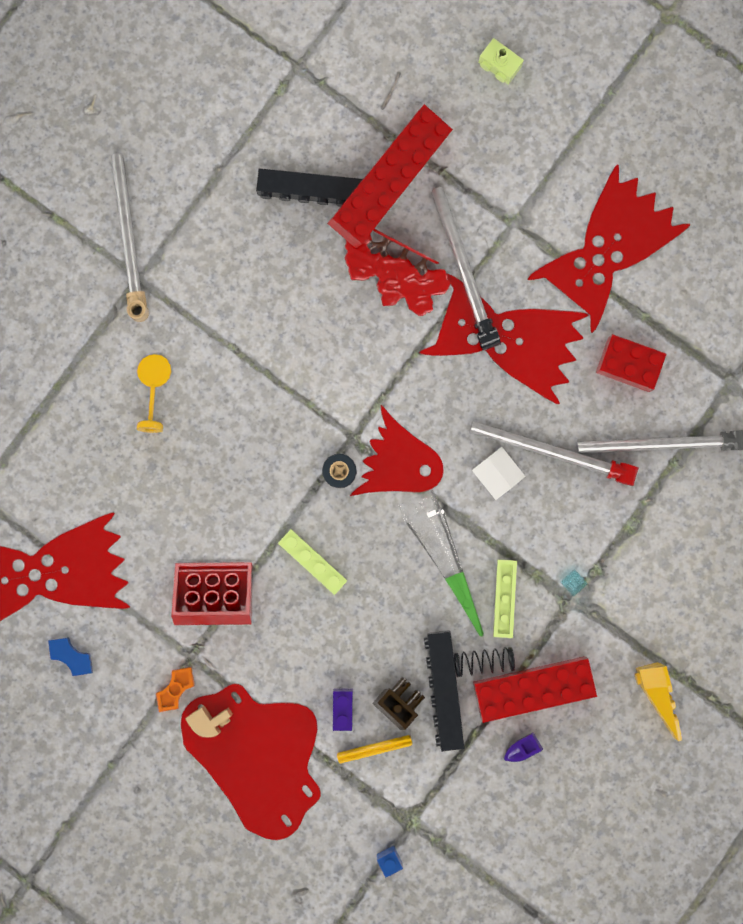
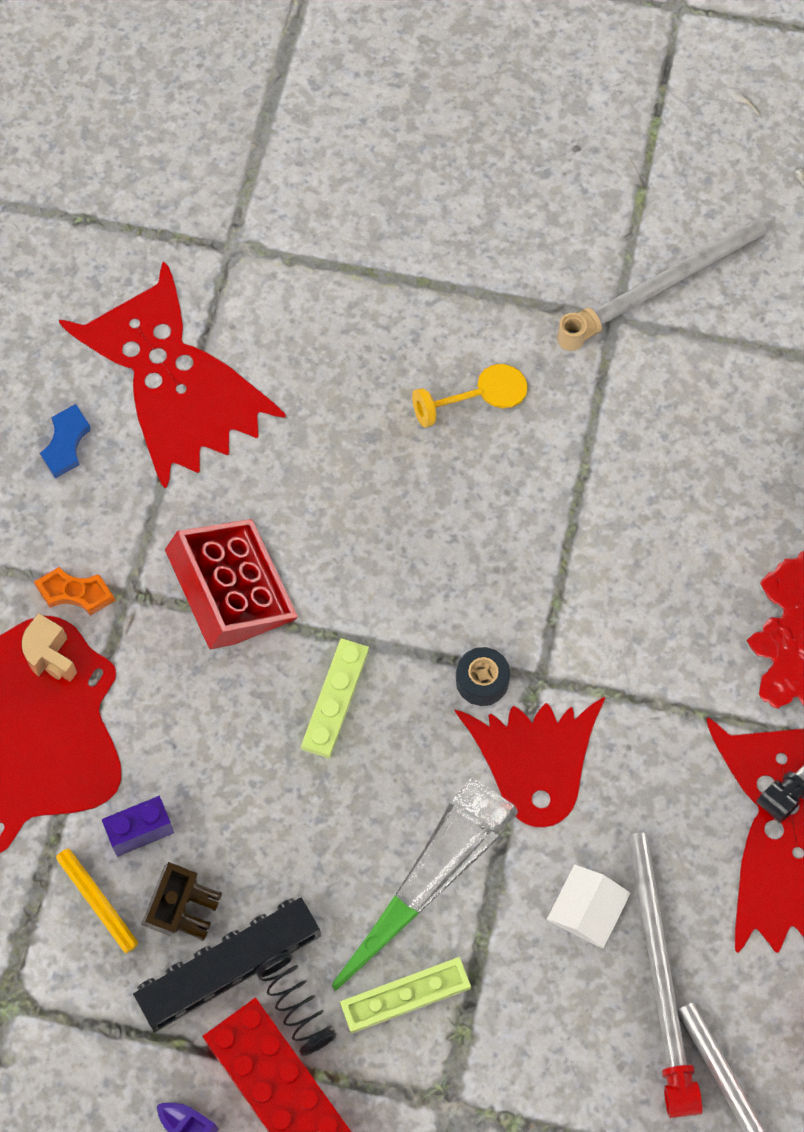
camera: 65 degrees right, 20 degrees down
(573, 583) = (476, 1093): clear light blue tile -> none

